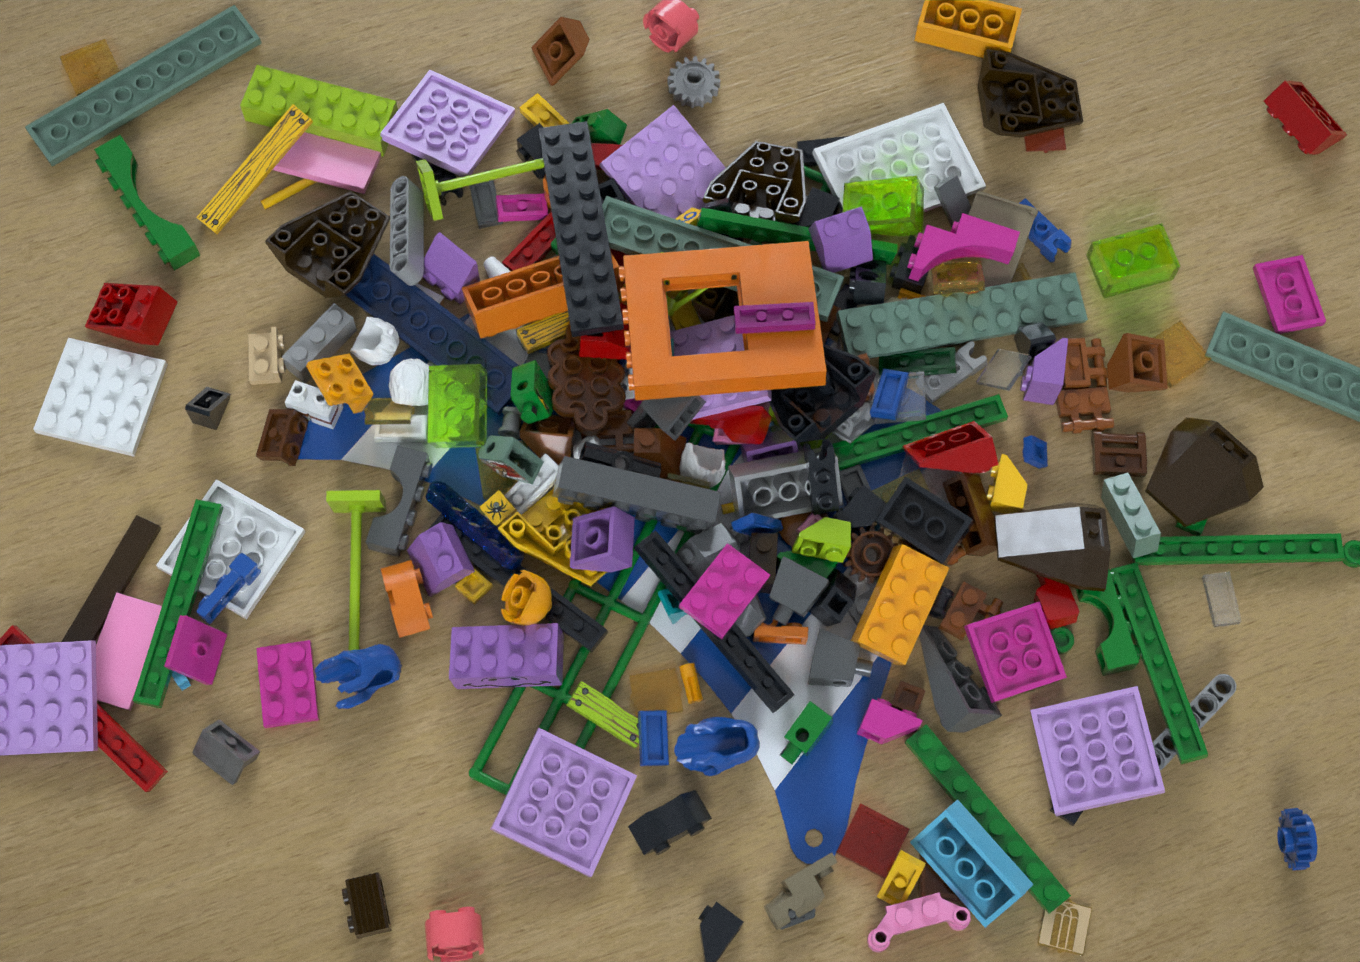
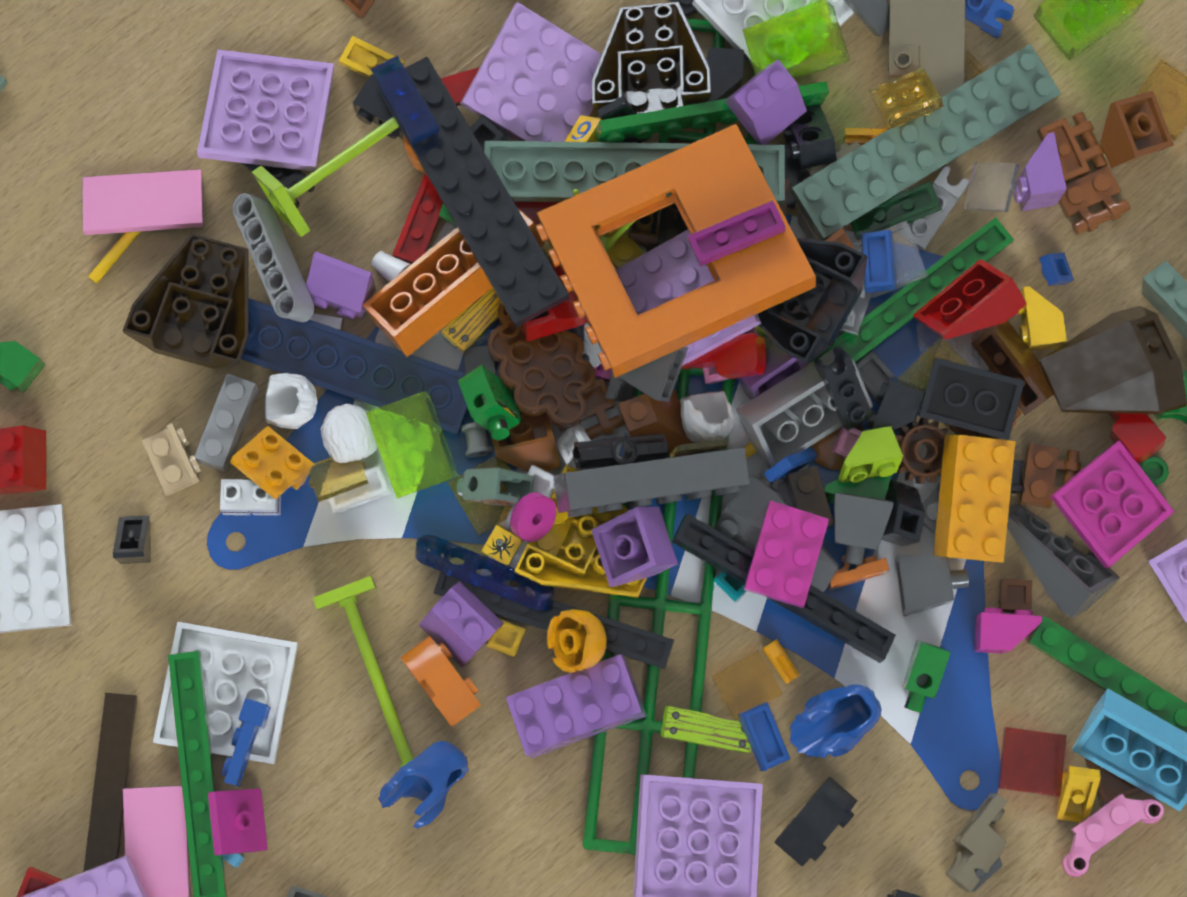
camera: 20 degrees left, 10 degrees up
(255, 169) = (69, 243): yellow tile -> none
(282, 436) = (229, 545): reddish brown bracket -> none
(287, 684) = (349, 819): dark pink plate -> none
(335, 110) = (110, 143): lime brick -> none
(390, 531) = (392, 612): dark grey arch -> none
(484, 203) = (347, 192): dark grey tile -> none
(521, 207) = (388, 181): dark pink plate -> none
(523, 485) = (533, 516): none -> dark pink piece
(555, 143) = (405, 100): none -> clear blue plate
(604, 127) = (445, 51): green slope -> none
(901, 272) = (849, 102): black slope -> none
(966, 239) = (900, 48): dark pink arch -> none
(1034, 339) = (1014, 142): black slope -> none
(1119, 460) = (1150, 246): reddish brown plate -> none

